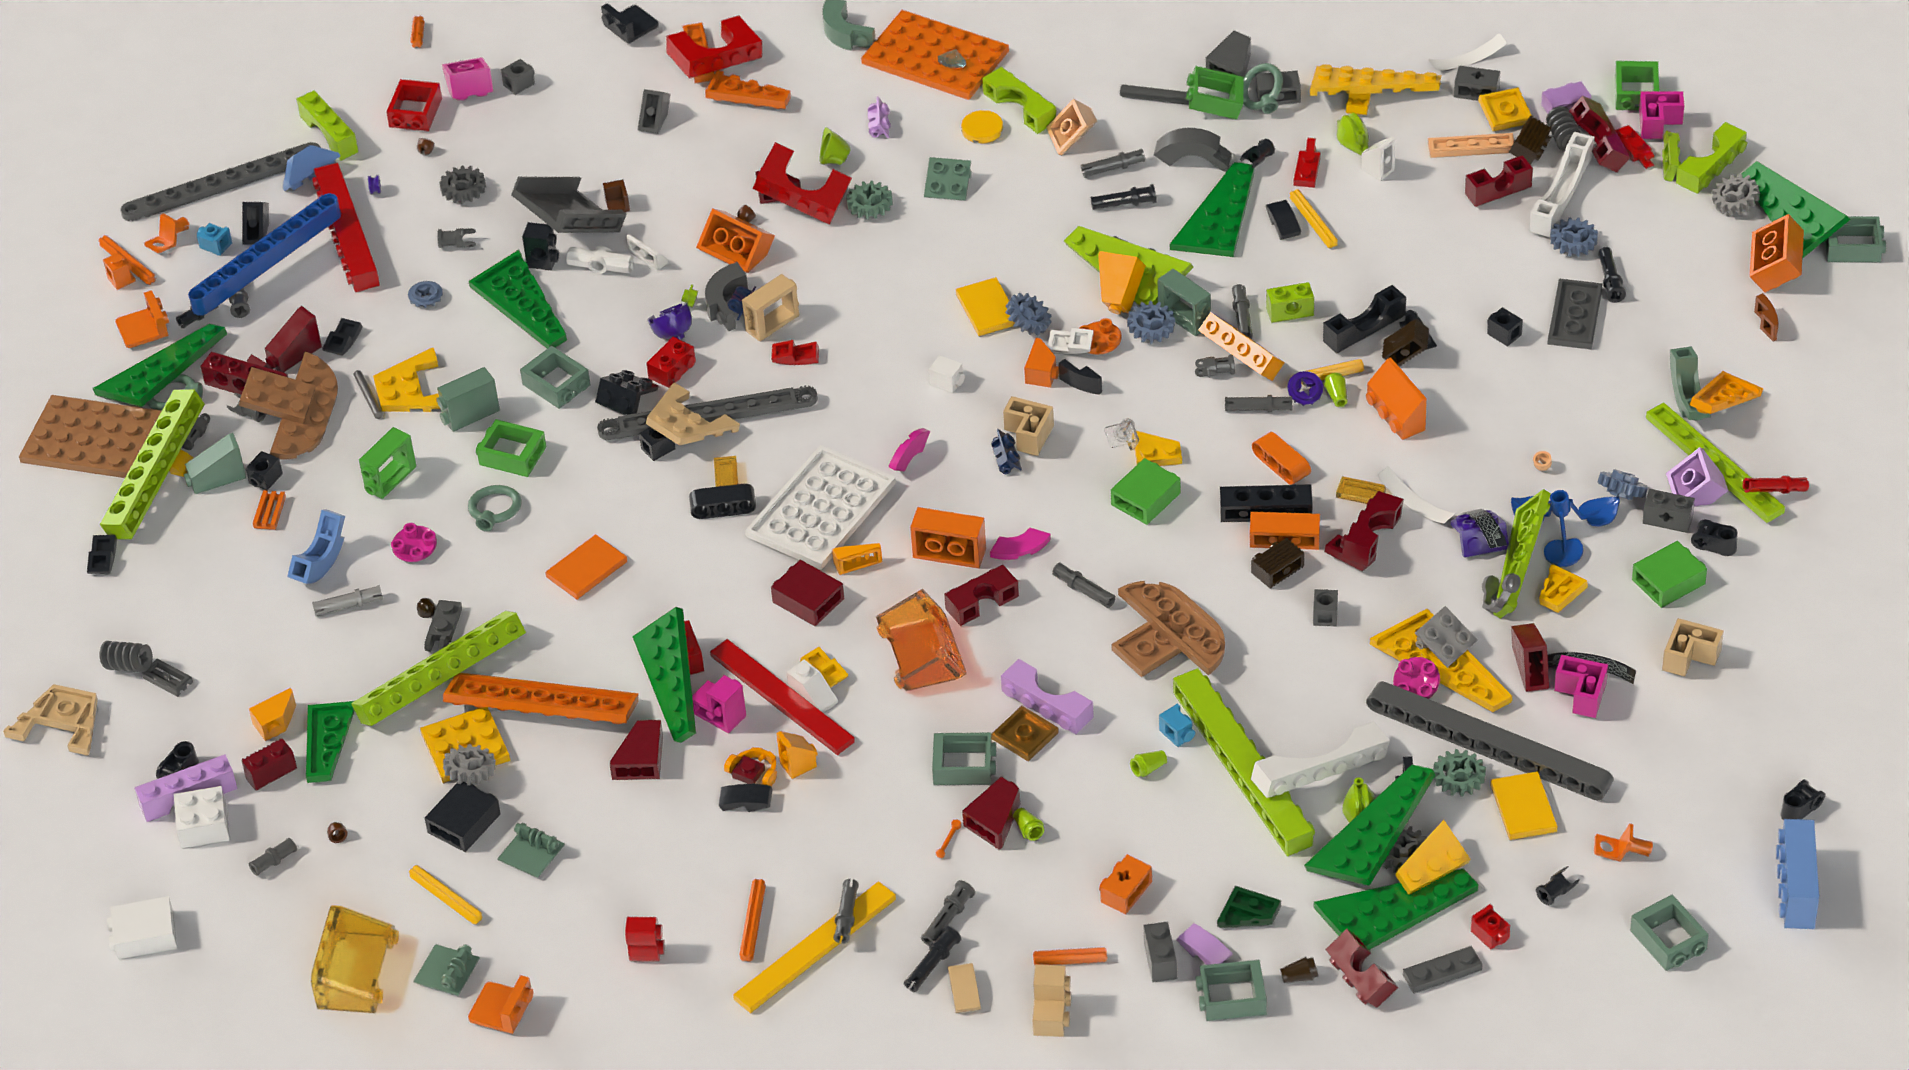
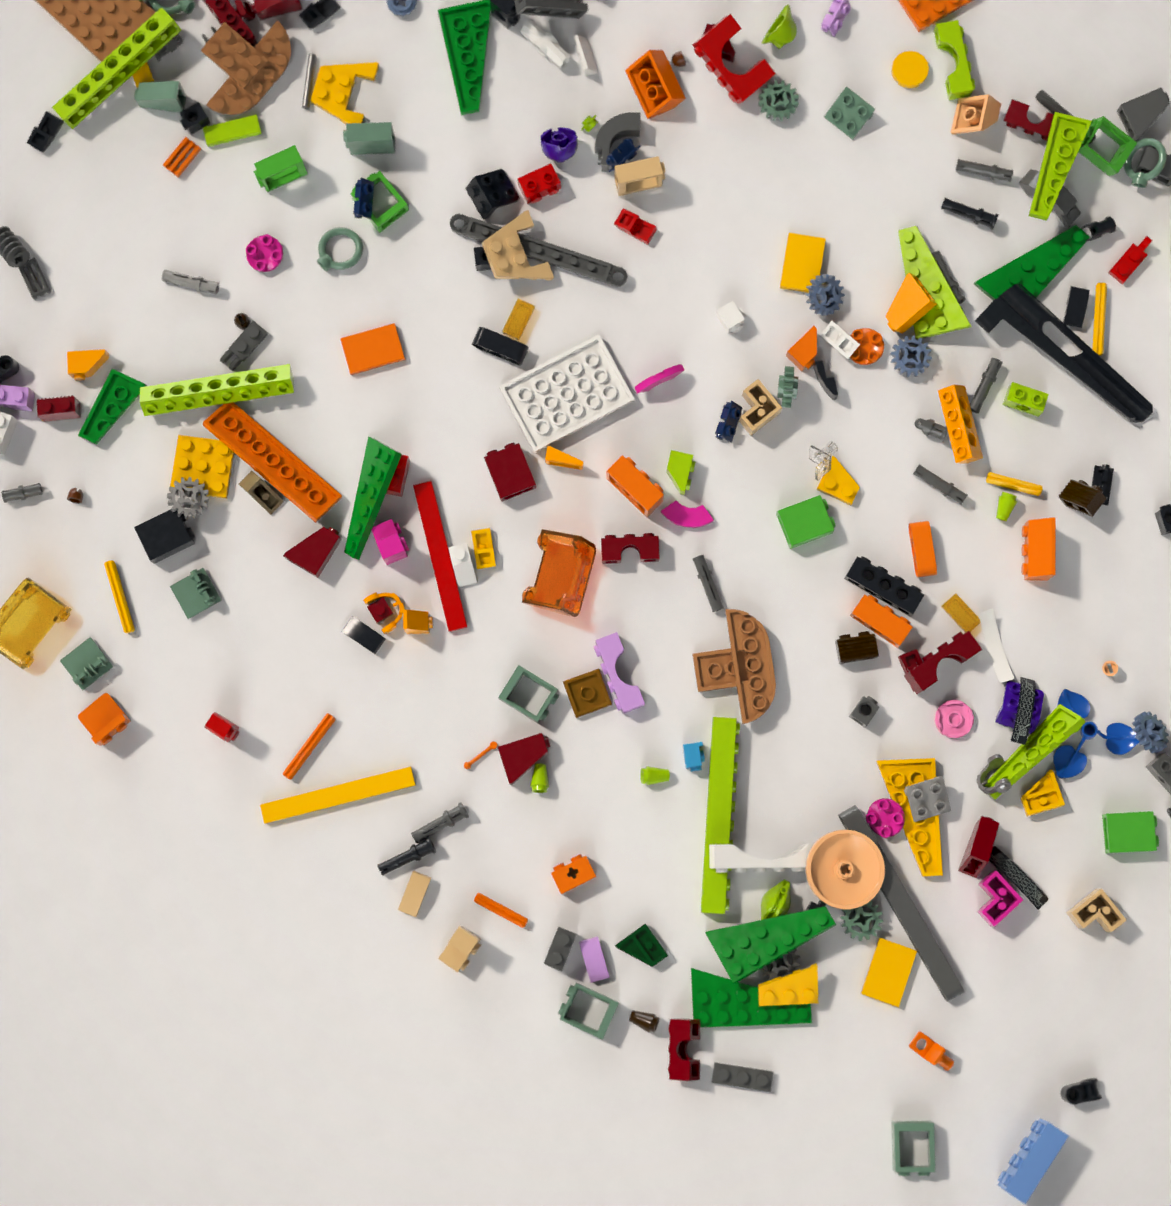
camera: 30 degrees right, 35 degrees up
(310, 466) = (232, 130): none -> lime tile
(323, 551) = (191, 228): medium blue arch -> none
(492, 436) = (364, 191): none -> dark blue hinge
(544, 364) = (442, 131): sand green window -> none
(546, 730) = (261, 492): none -> dark tan slope
(844, 919) = (370, 784): dark grey pin -> none
(987, 505) = (678, 470): none -> lime slope
(1046, 390) = (787, 387): none -> sand green gear
(1115, 111) = (1017, 116): none -> dark red arch
(1175, 285) = (944, 356): sand green window -> none
(1177, 109) = (1060, 152): none -> lime wing
(1246, 235) = (1028, 315): none -> black panel
(1309, 380) = (975, 497): dark purple gear -> none
(1384, 309) = (1057, 454): black arch -> none
(1407, 727) = (845, 869): none -> light nougat dish
(1421, 575) = (954, 719): none -> bright pink tile
(1490, 927) = (792, 1059): red brick -> none
(1557, 885) = (864, 1058): black piece -> none

